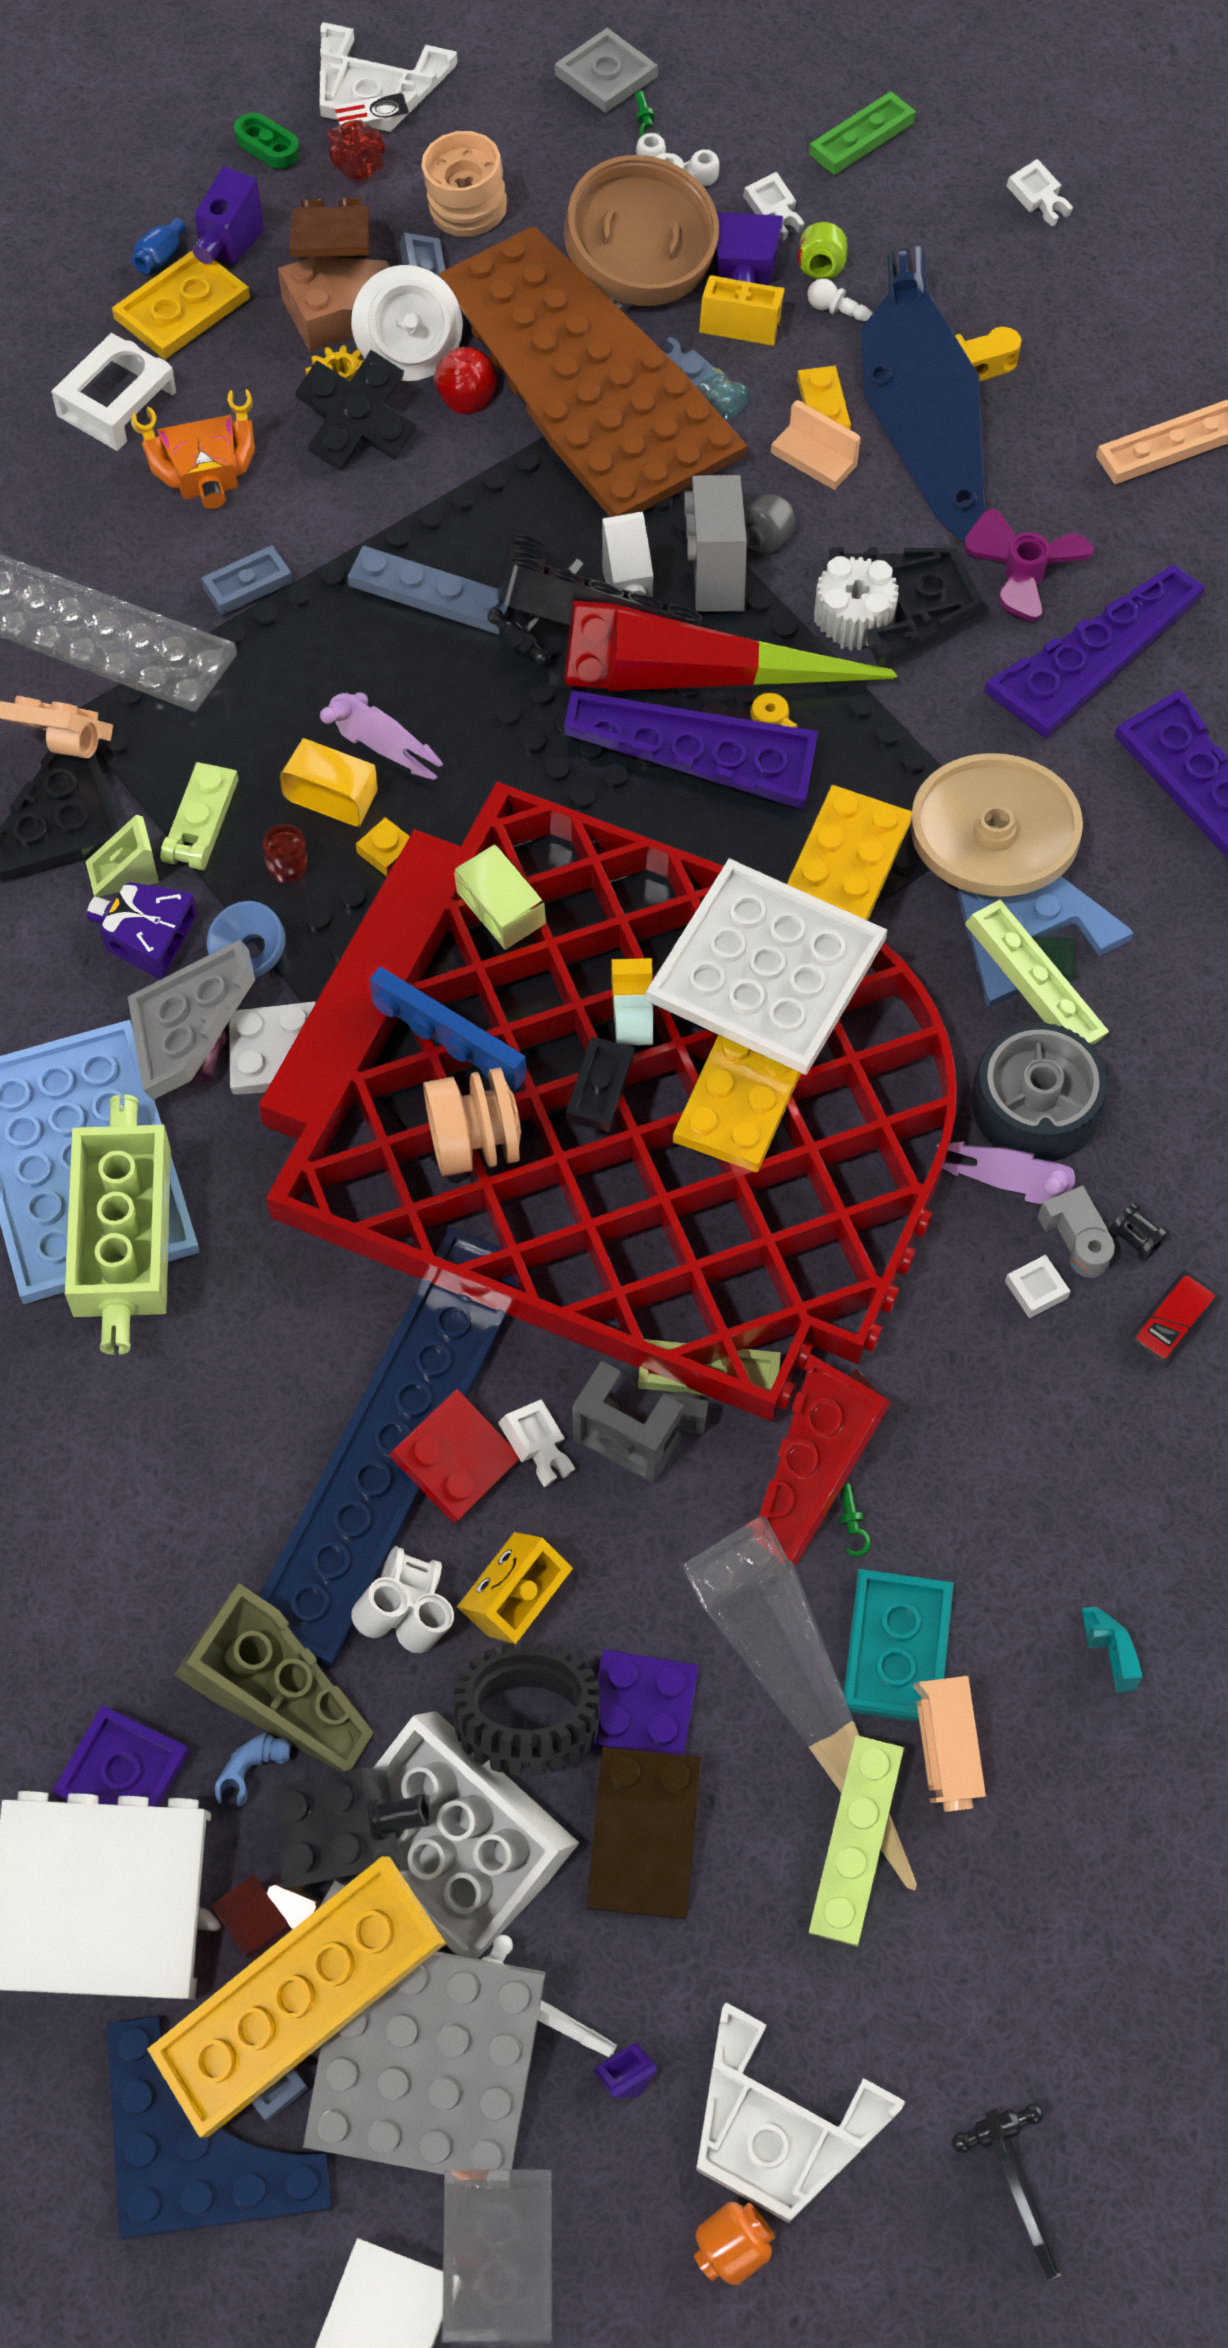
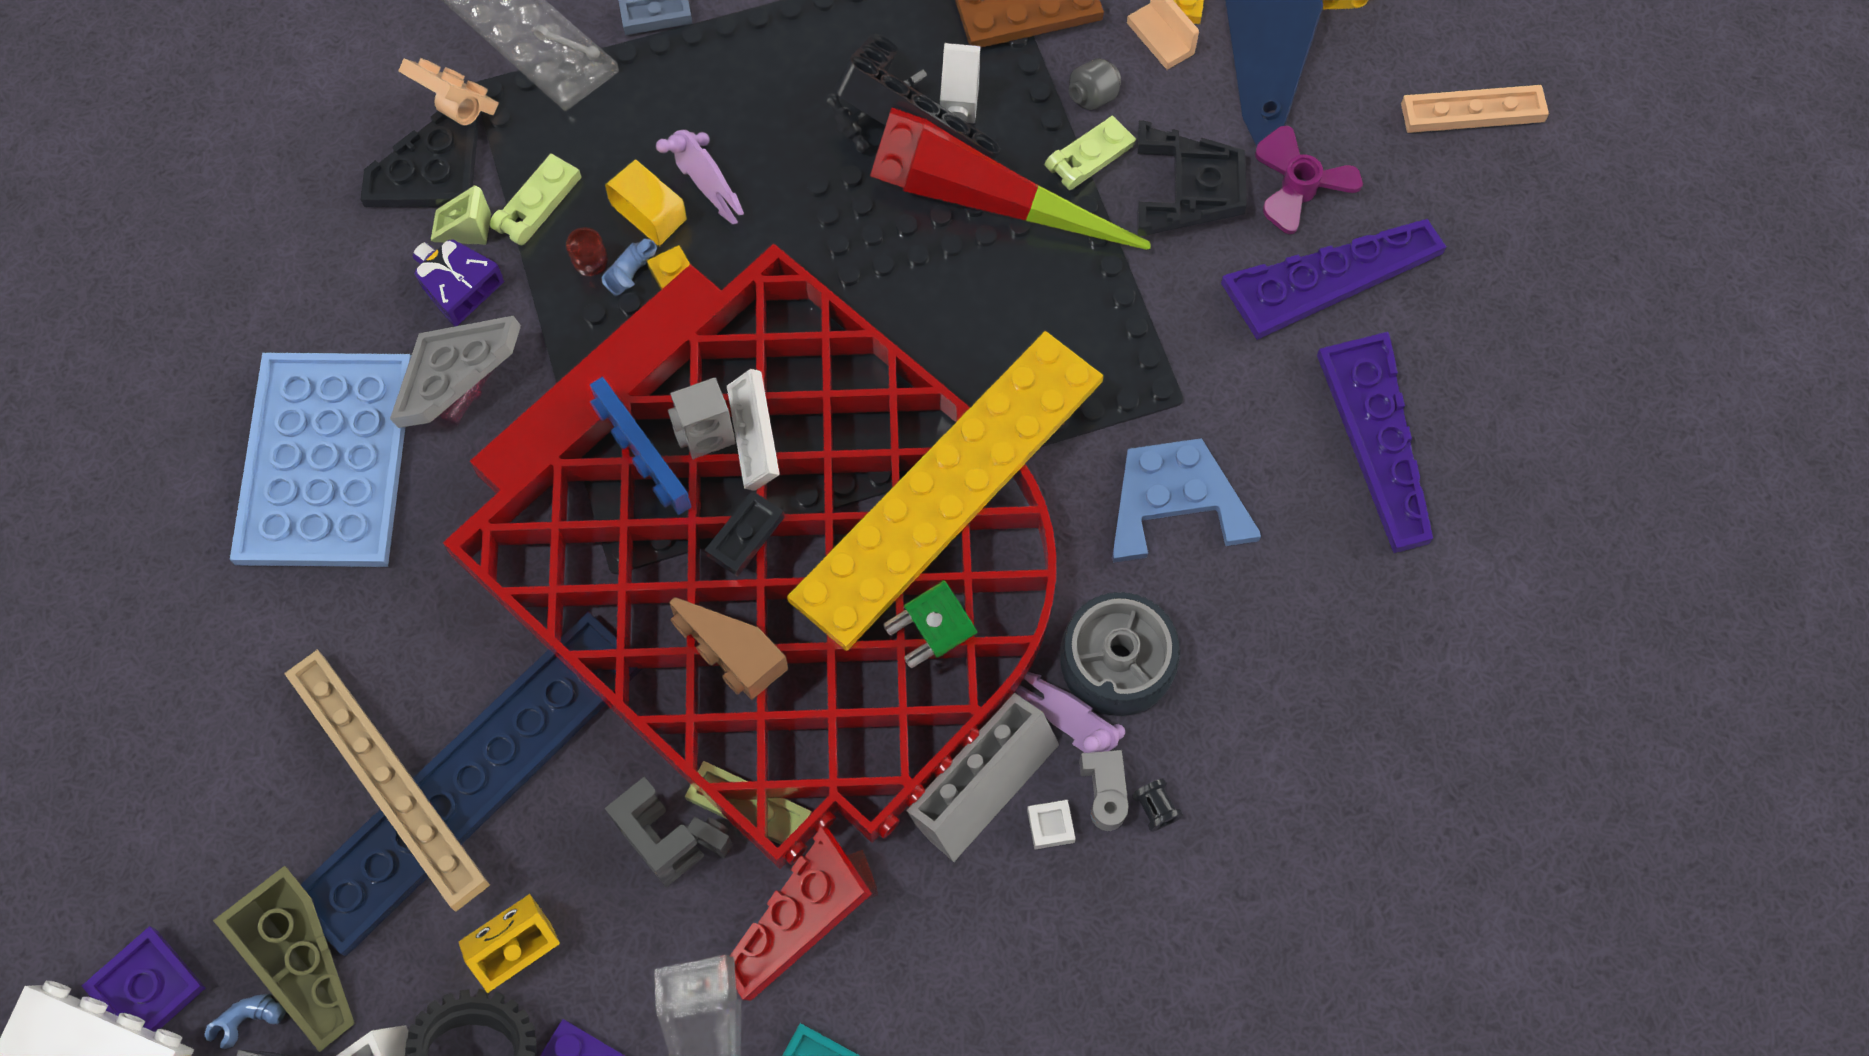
camera: 20 degrees right, 5 degrees up
(118, 1222) = (319, 525): yellowish green brick -> none
(137, 634) = (542, 33): none -> light grey hinge
(249, 921) = (523, 303): medium blue piece -> none
(261, 1042) = (502, 403): white plate -> none
(306, 1464) = (387, 781): none -> tan plate
(339, 844) = (620, 274): none -> medium blue piece
(407, 1597) = (420, 918): white piece -> none
(425, 588) = (788, 56): sand blue plate -> none
(454, 1456) = (510, 811): red plate -> none
(472, 1121) = (609, 535): light nougat wheel -> none
(499, 896) = (726, 342): yellowish green piece -> none
(509, 976) = (701, 418): none -> light grey brick
(536, 1436) = (583, 813): white plate -> none
(563, 976) = (752, 430): none -> white plate
(631, 1011) = (800, 471): leg -> none
(641, 1200) = (738, 647): none -> medium nougat slope
(717, 542) = (1040, 87): light grey wedge -> none
(723, 749) = (977, 270): dark purple wing -> none
(766, 966) = (919, 476): white plate -> none
(771, 709) = (1035, 255): yellow piece -> none
(790, 596) = (1090, 152): none -> yellowish green plate
(843, 1108) = (939, 621): none -> green piece
(852, 1518) = (813, 976): green hand -> none
(855, 599) = (1140, 171): white brick -> none
(949, 1259) = (984, 777): none -> light grey brick
(996, 824) = (1177, 406): tan dish -> none
(1033, 972) = (1158, 549): yellowish green plate -> none
(1061, 953) = (1183, 536): clear green tile -> none
(1175, 1318) = (1157, 892): slope -> none

